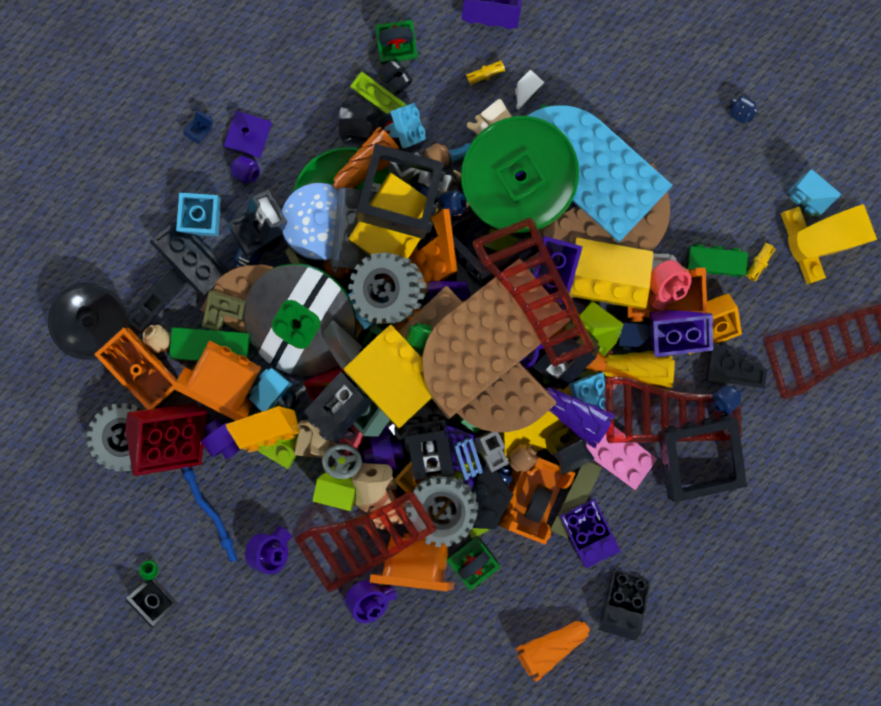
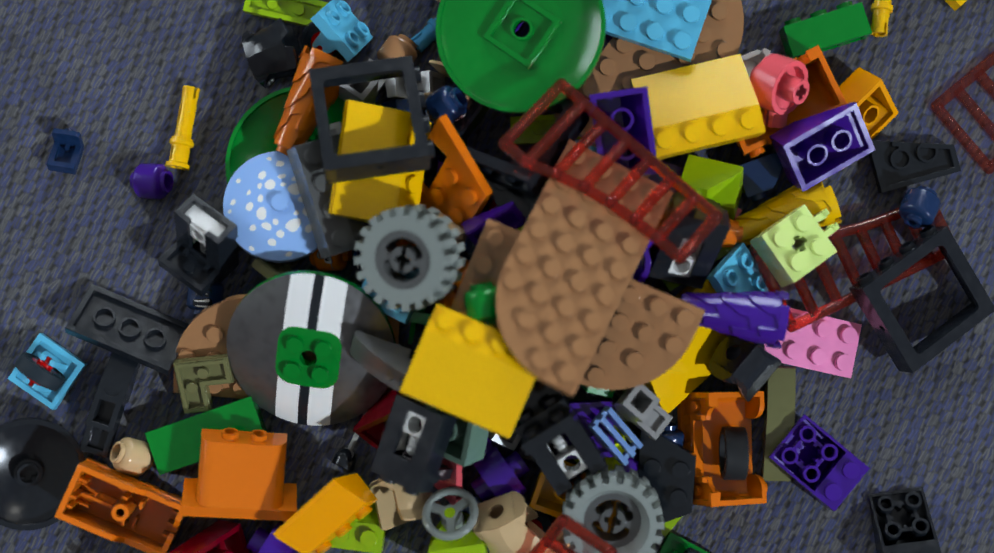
camera: 25 degrees left, 0 degrees up
(127, 261) = (47, 371): none -> medium azure plate
(198, 214) = (115, 266): medium azure slope -> none
(248, 134) = (135, 132): dark purple tile -> none
(270, 389) = (311, 459): medium azure slope -> none
(275, 152) = (181, 141): none -> yellow pin
(523, 457) = (688, 401): medium nougat head -> none
(644, 387) = (806, 235): none -> yellowish green hinge

